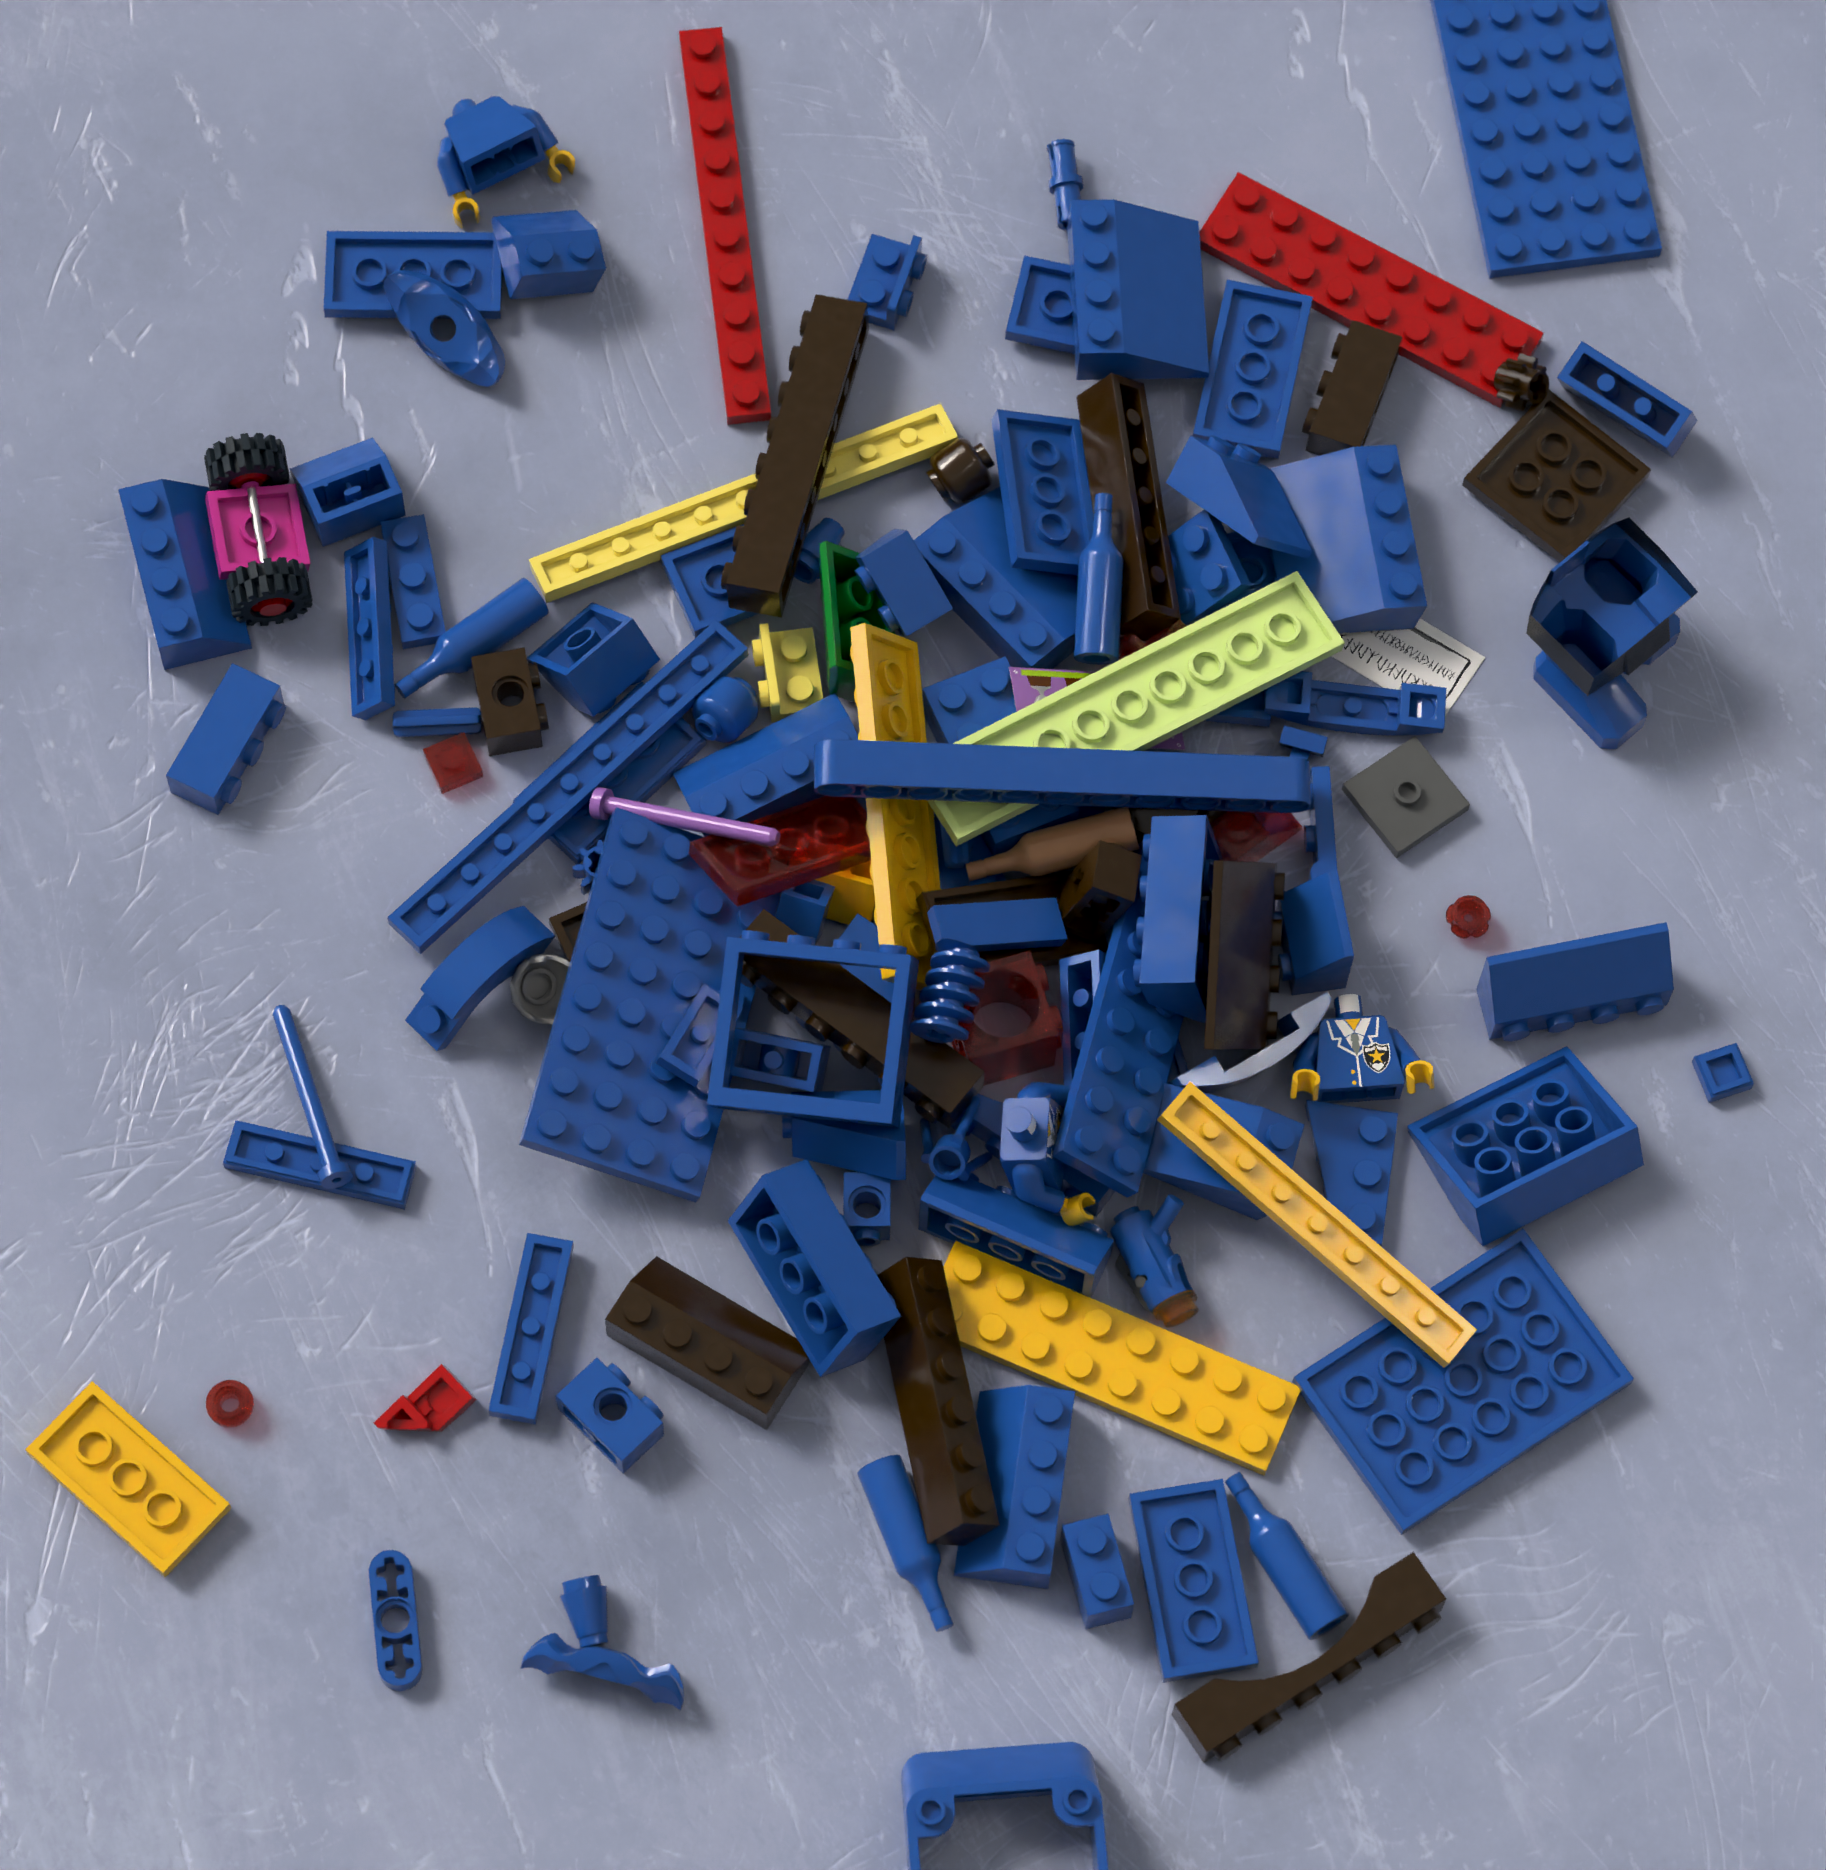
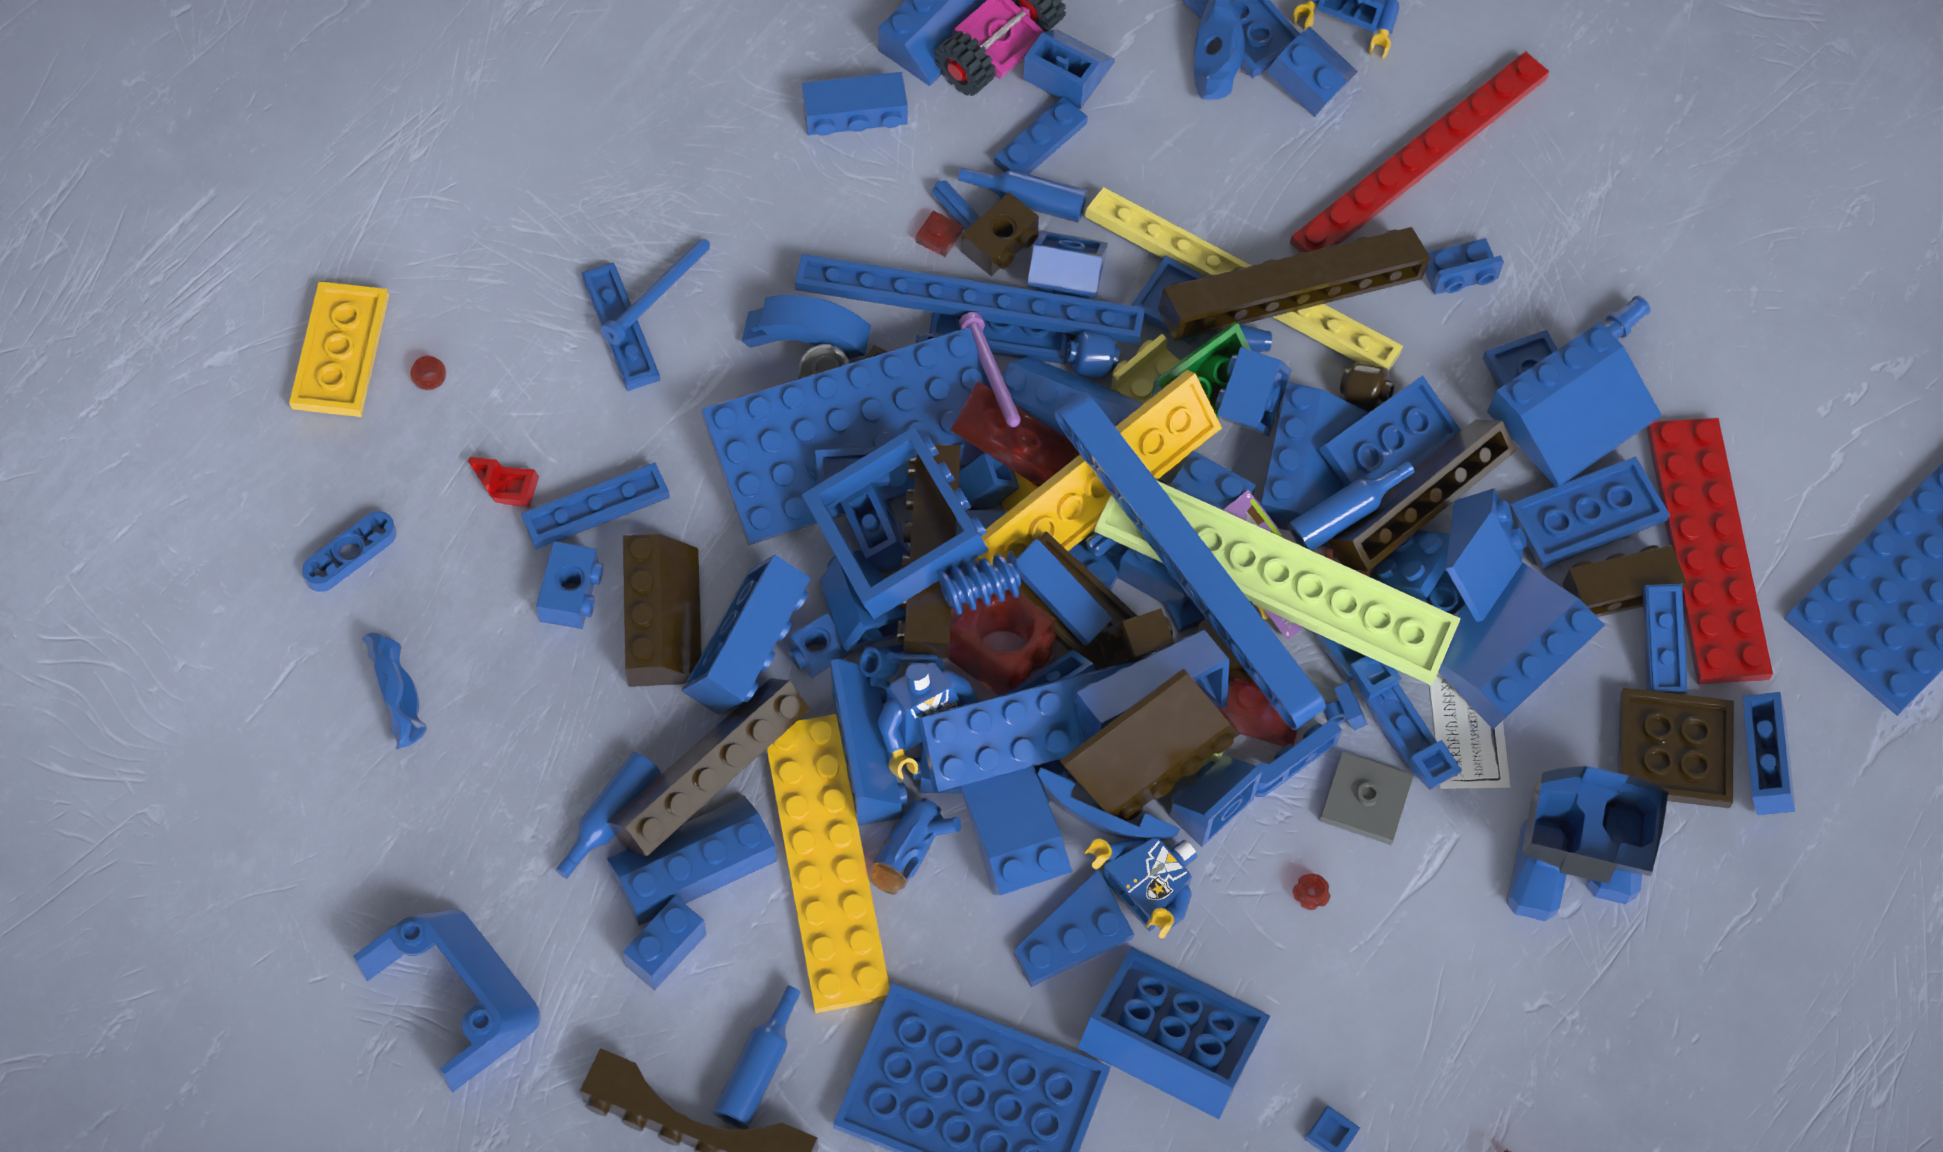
camera: 55 degrees right, 5 degrees down
(369, 628) = (996, 128): blue plate -> none
(587, 1609) = (428, 653): blue cone -> none
(1059, 845) = (1147, 595): medium nougat piece -> none
(1193, 1580) = (703, 1010): blue plate -> none
(1317, 1224) = (1000, 922): yellow plate -> none
(1442, 401) = (1665, 638): none -> blue tile
(1521, 382) = (1722, 679): dark brown gear -> none
(1576, 982) = (1315, 987): blue slope -> none

